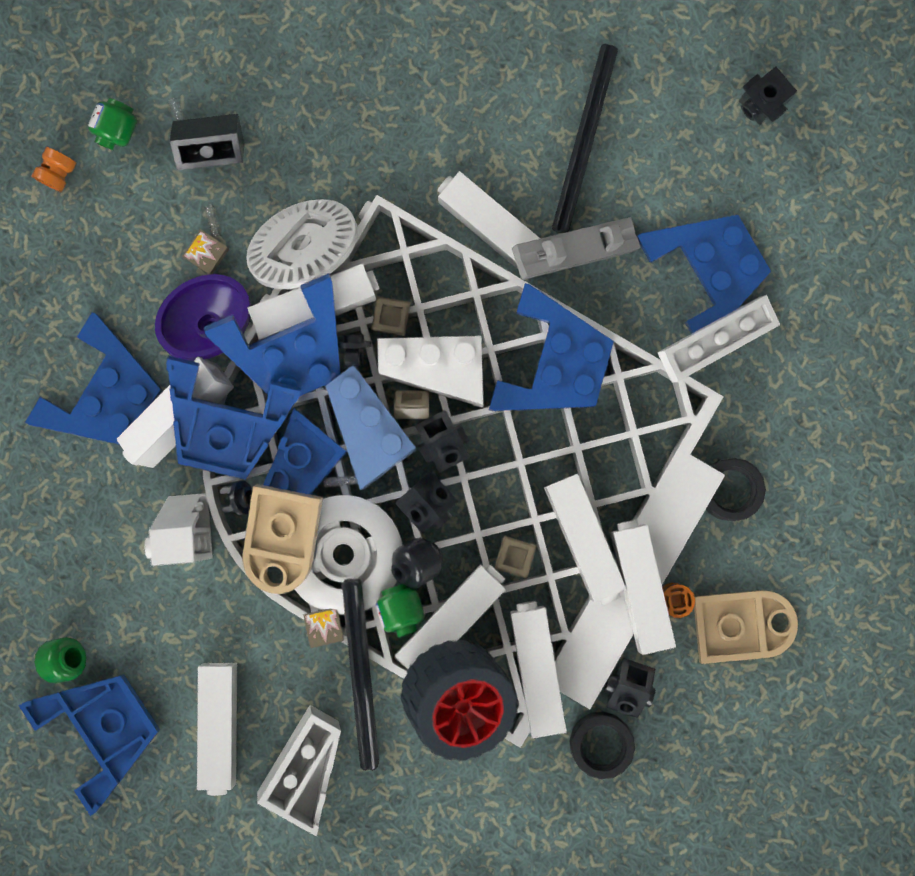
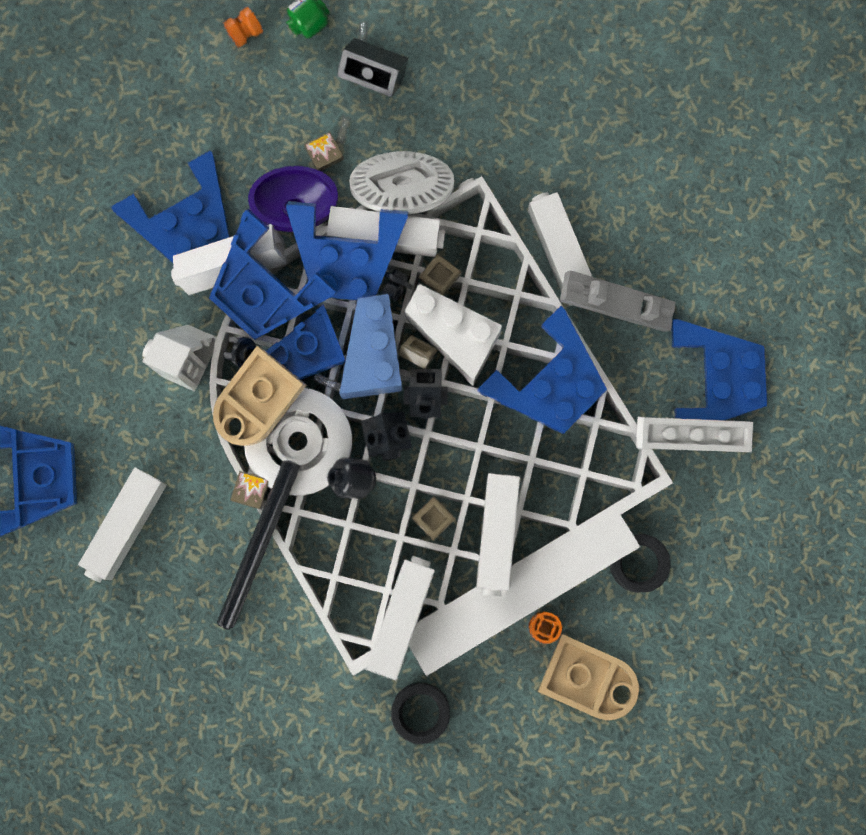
camera: 35 degrees right, 5 degrees down
(60, 660) = (31, 404): green head -> none
(302, 771) = (166, 599): white wedge -> none
(400, 610) = (317, 509): green head -> none
(455, 614) = (353, 540): white brick -> none
(459, 700) = (323, 604): black wheel -> none
(584, 138) = (672, 221): black axle -> none
(630, 688) = (469, 678): black brick -> none
(643, 587) = (522, 598): white brick -> none
(766, 96) = (837, 264): black brick -> none

